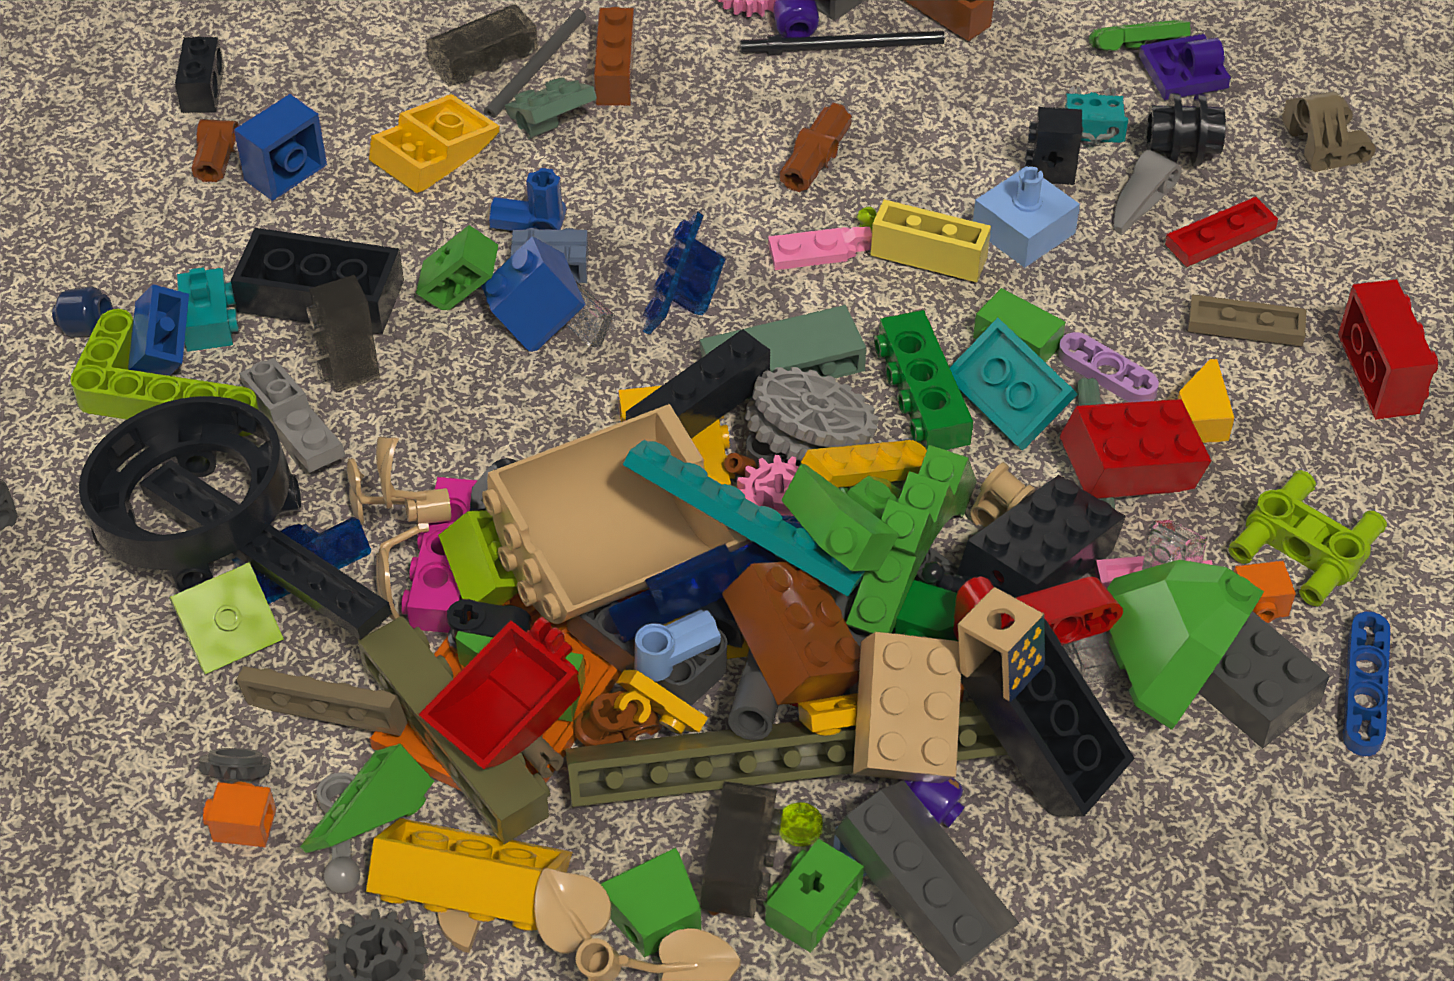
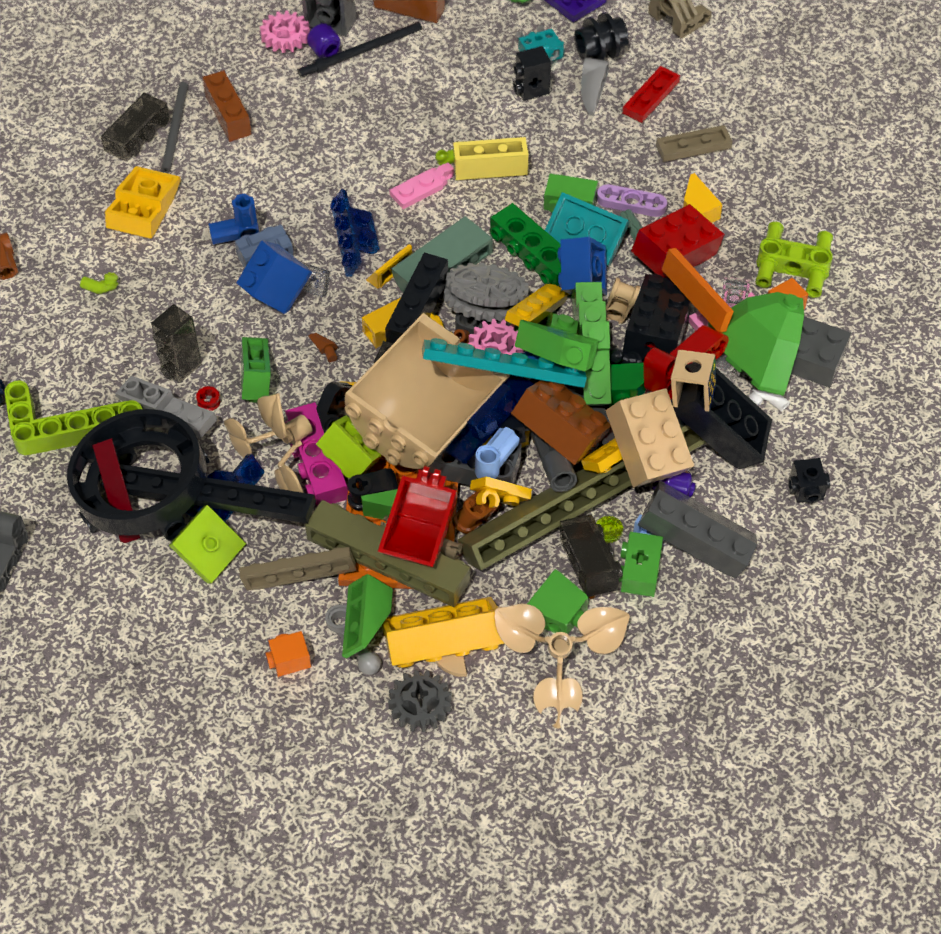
camera: 25 degrees left, 5 degrees up
(154, 483) = (113, 480): none -> dark red sticker
(158, 331) = (50, 386): blue brick -> none
(209, 313) = (66, 361): teal brick -> none
(234, 764) = (268, 626): dark grey gear -> none
(280, 147) = (51, 239): blue brick -> none
(283, 266) = (122, 315): black brick -> none
(303, 225) = (100, 287): none -> lime arm
(354, 417) = (202, 395): none -> red bush
(438, 408) = (255, 368): none -> bright green slope
(457, 268) = (216, 277): bright green brick -> none
(539, 110) = (203, 151): sand green plate -> none
(554, 414) = (325, 346): none -> dark orange bar
(686, 345) = (384, 273): none -> yellow slope
(815, 147) = (385, 123): dark orange piece -> none
(974, 425) = (582, 261): none -> blue slope
(1027, 215) = (538, 121): light blue brick -> none
(1111, 523) = (697, 290): none -> orange tile
(1141, 874) = (808, 480): none -> black brick
(1167, 738) = (776, 400): none -> white arm
(1367, 683) = (870, 329): blue beam -> none
(1387, 349) = (783, 133): red brick -> none

